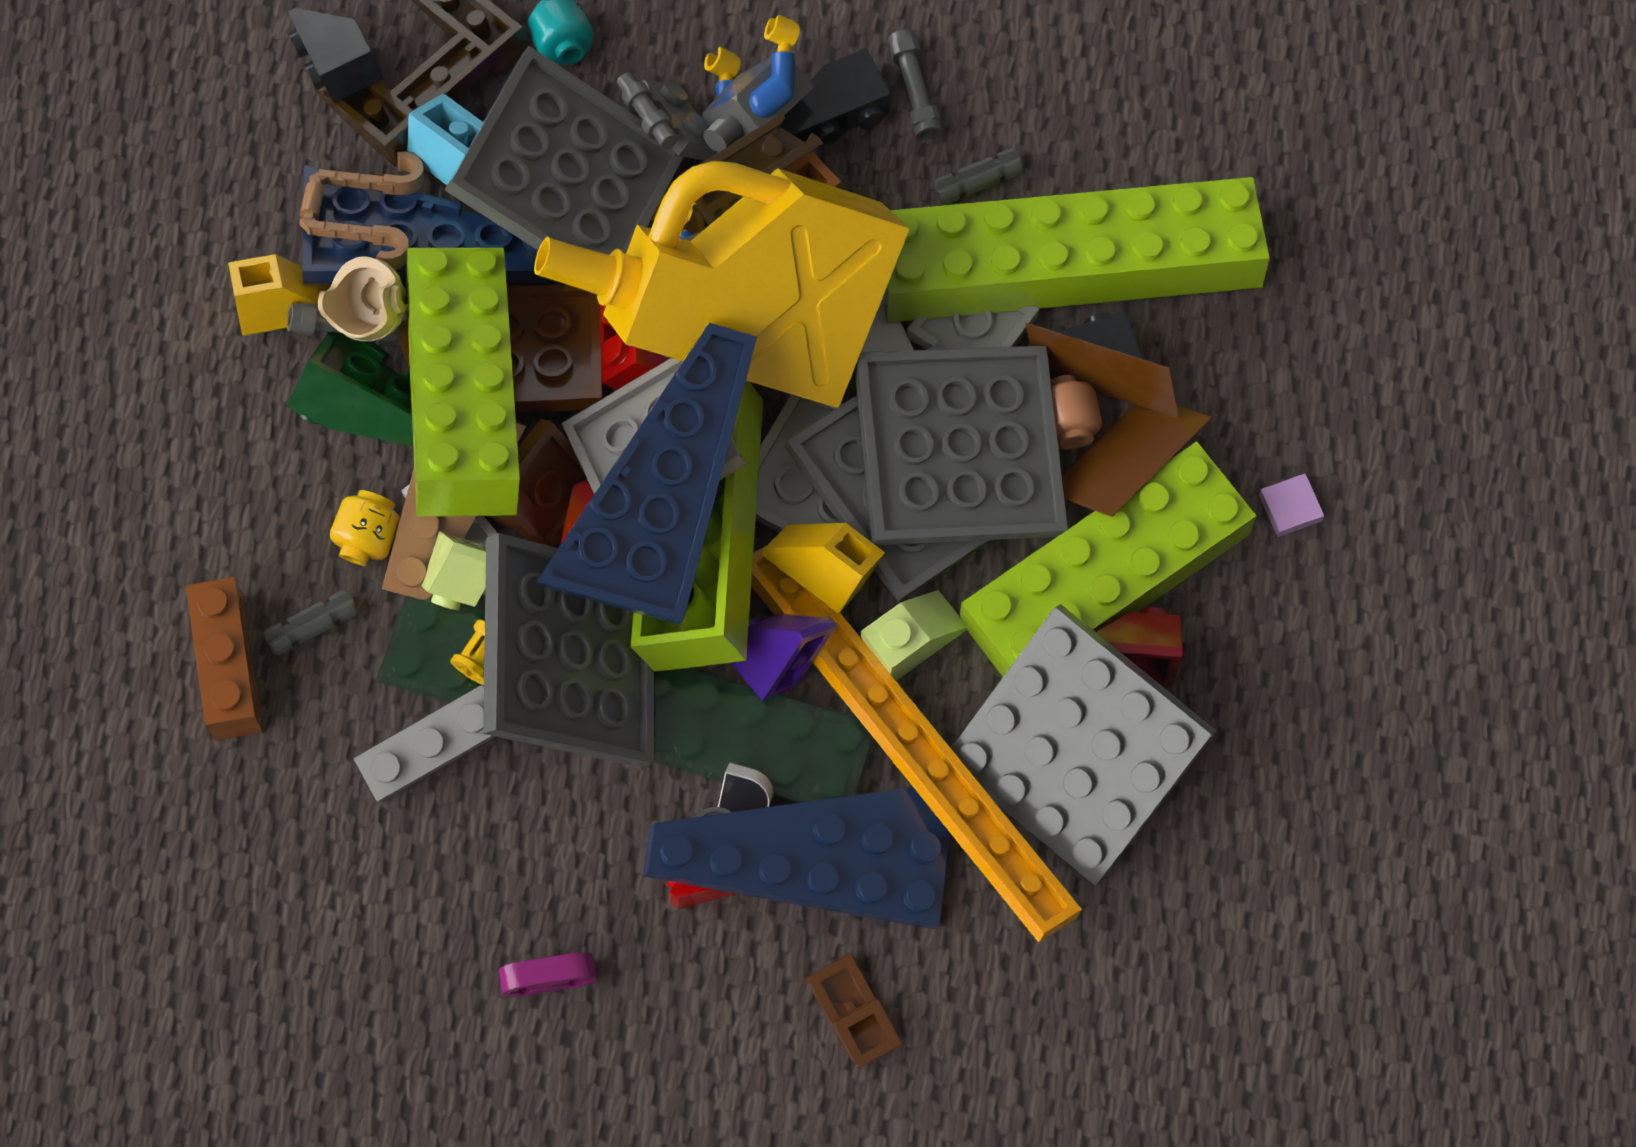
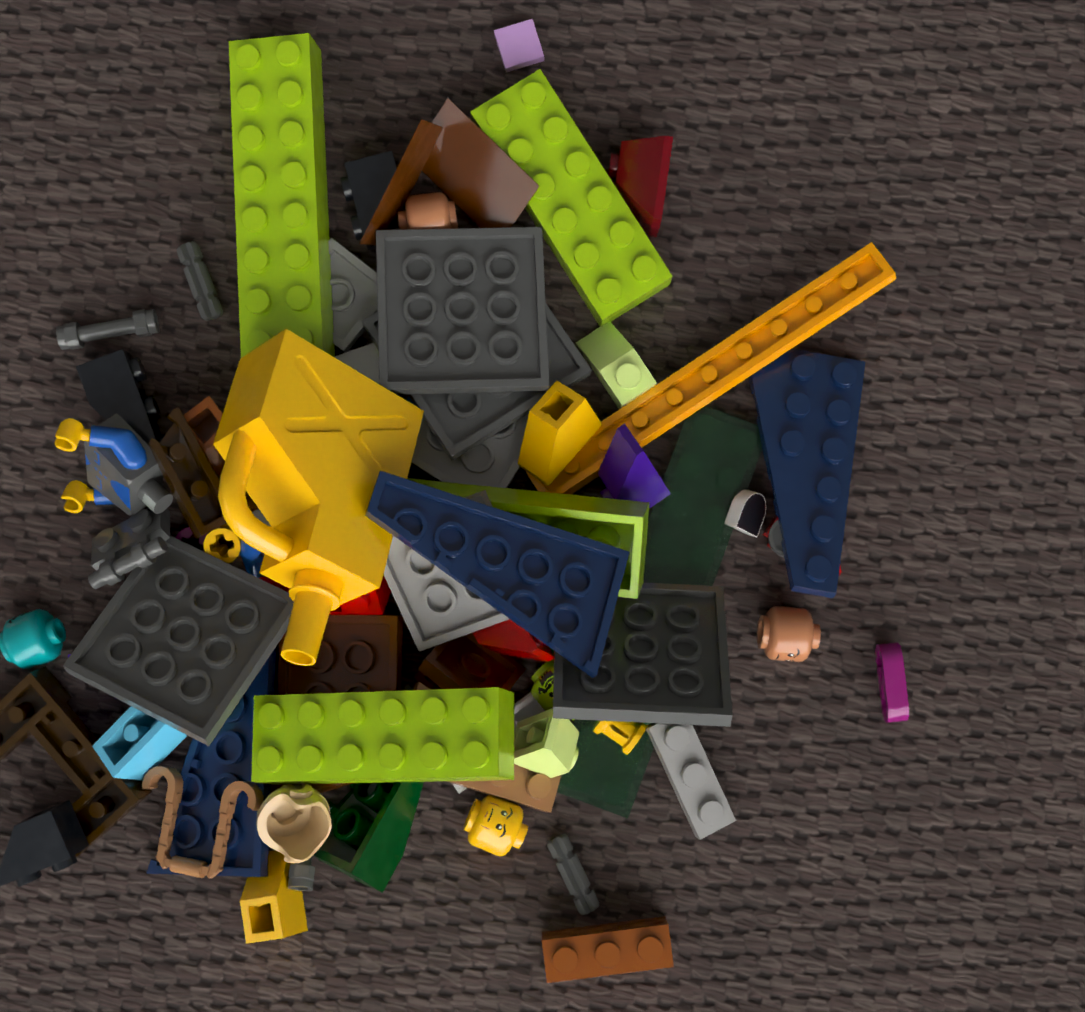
camera: 85 degrees left, 15 degrees up
(601, 845) = (787, 634): none -> nougat head
(853, 1010) = (929, 436): reddish brown slope -> none
(1080, 744) = (732, 230): plate -> none

